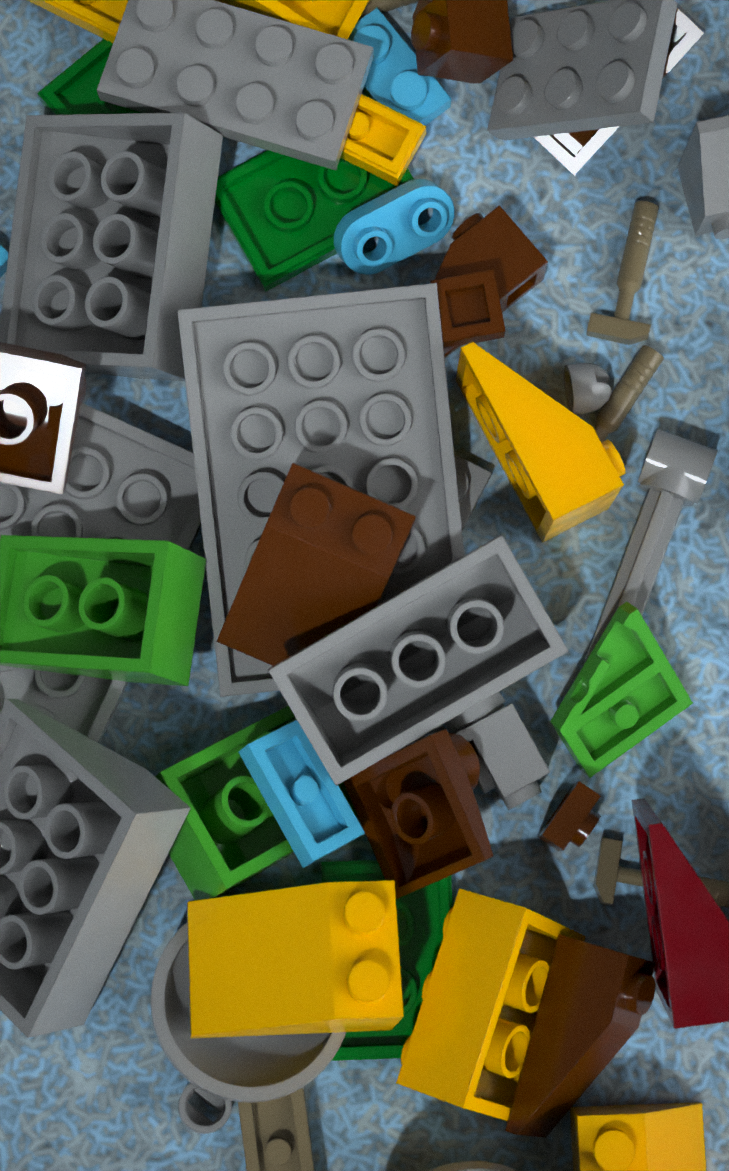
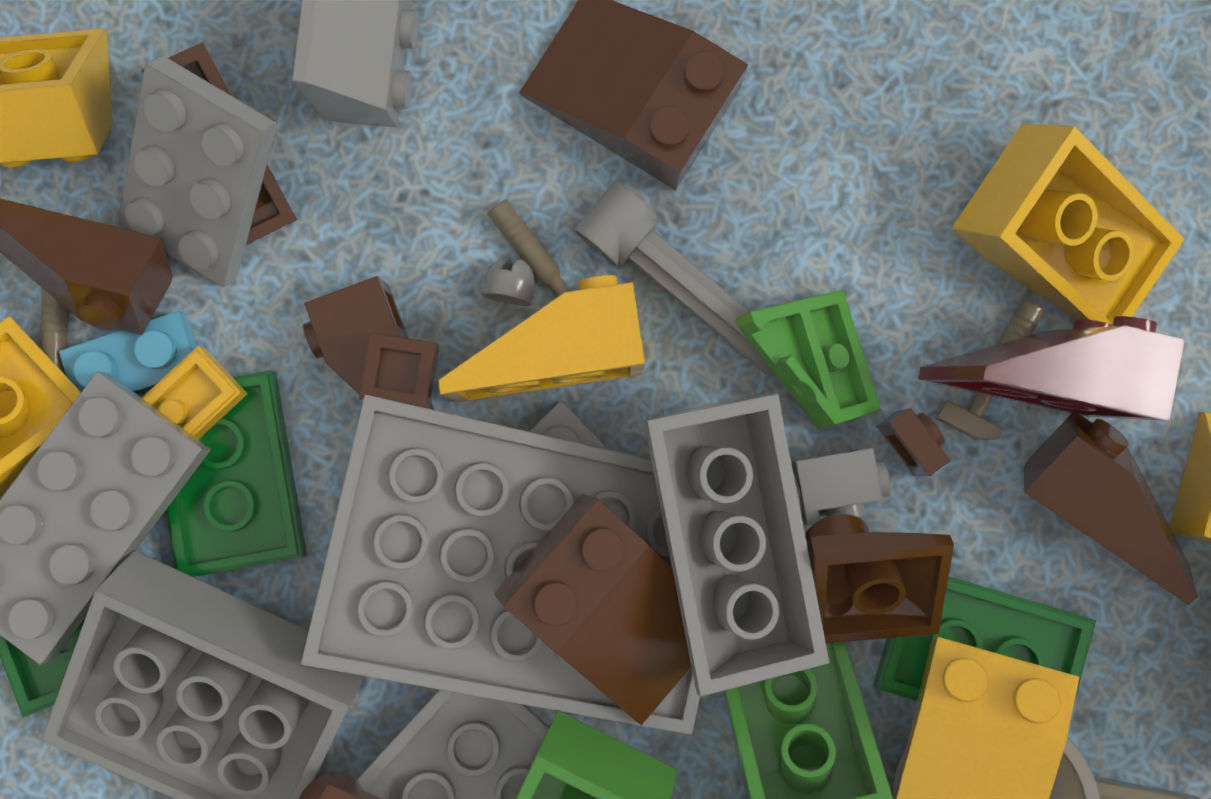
camera: 70 degrees left, 5 degrees up
(301, 793) = (823, 697): medium azure plate -> none
(395, 222) = (282, 409): medium azure plate -> none
(480, 1004) = (1070, 590): yellow slope -> none
(629, 281) = (418, 204): dark tan piece -> none

